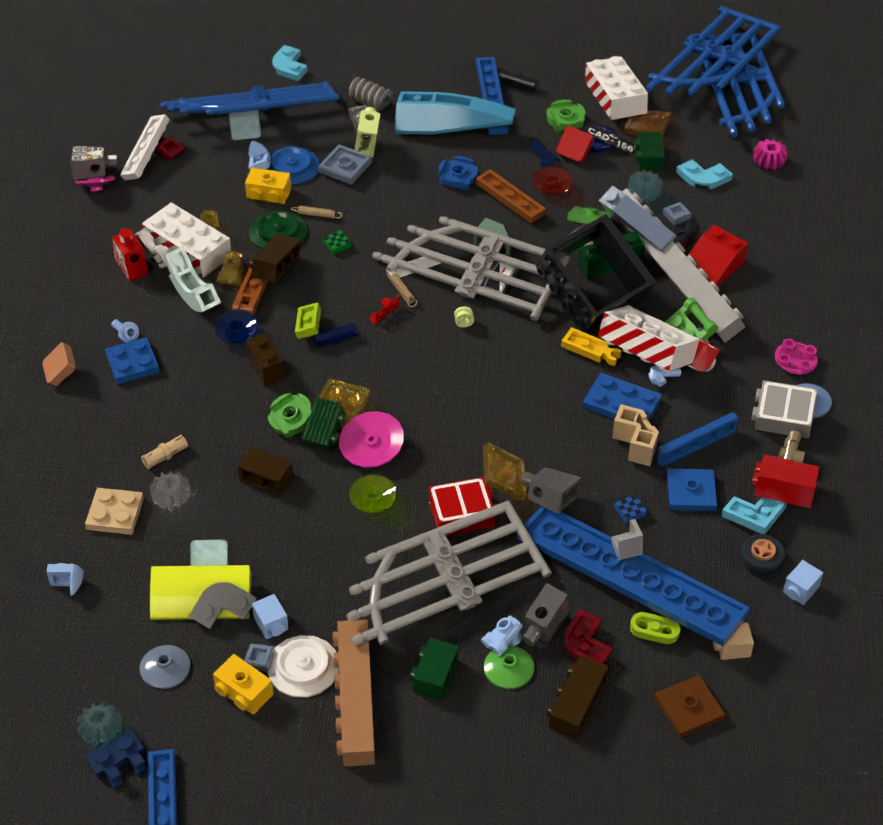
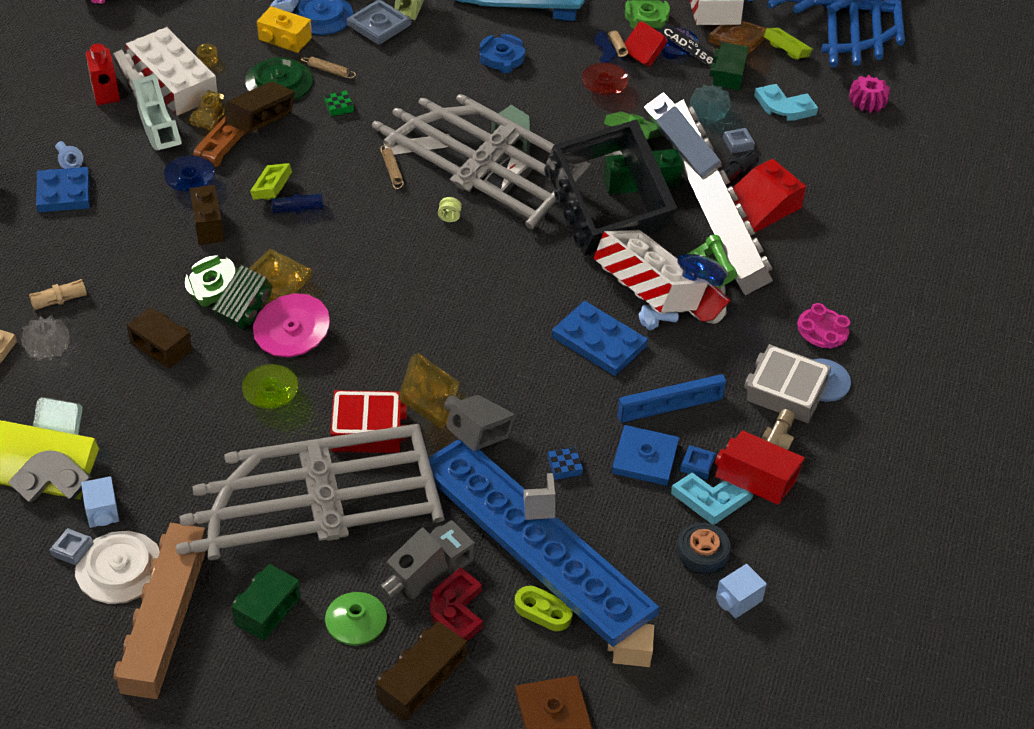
camera: 10 degrees right, 0 degrees up
(243, 684) = (38, 573): yellow brick -> none
(389, 305) = (372, 181): red piece -> none
(504, 635) = (364, 577): light blue plate -> none
(510, 196) = (552, 87): dark orange plate -> none
(552, 147) = (618, 43): none -> tan piece
(575, 591) = (456, 545): none -> dark grey brick
(590, 347) = (583, 269): yellow plate -> none
(633, 427) = (598, 371): tan brick -> none
(691, 327) = (702, 267): none -> clear blue dish
(695, 124) = (781, 39): none -> lime plate
(734, 486) = (698, 462): none -> blue tile

